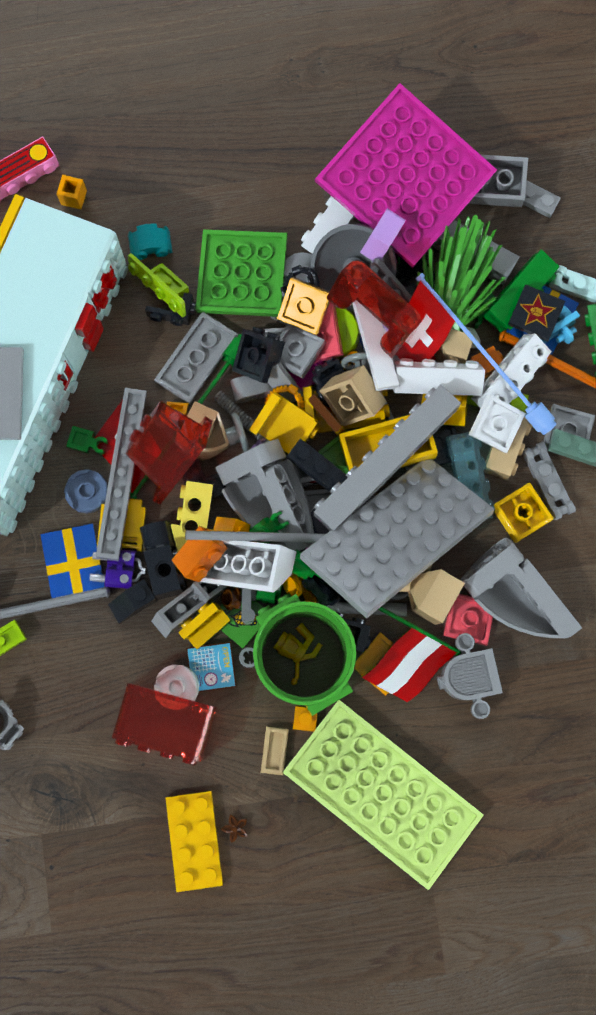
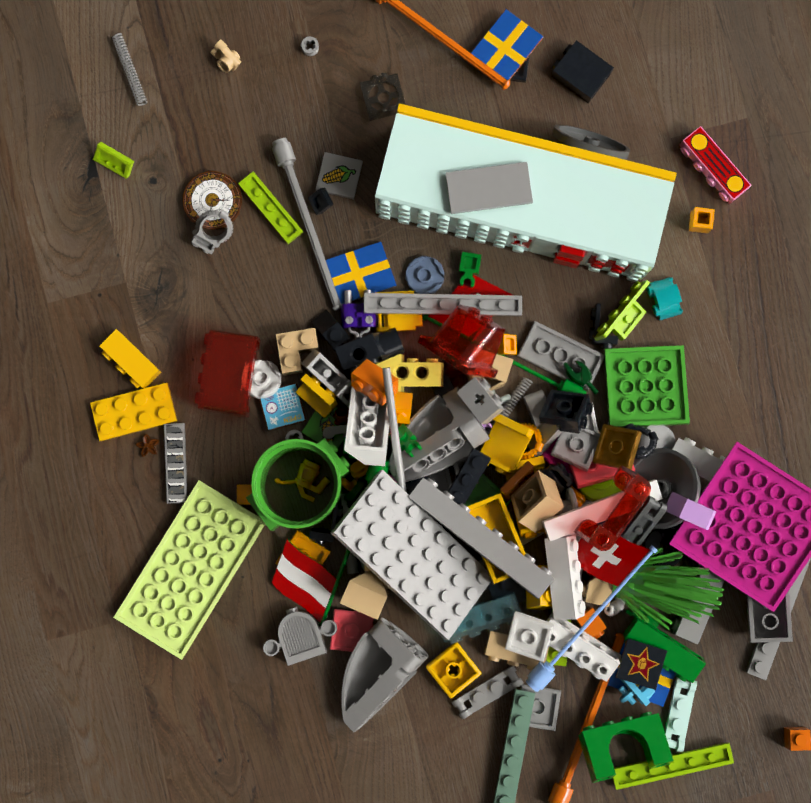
camera: 85 degrees right, 5 degrees up
(132, 839) = (129, 360): none -> yellow brick
(142, 646) = (291, 345): none -> tan brick
(223, 336) = (583, 377): none -> dark green hand
(228, 451) = (471, 396): none -> light grey brick
(259, 797) = (175, 463): none -> tile
(274, 750) = (217, 470): tan tile -> none

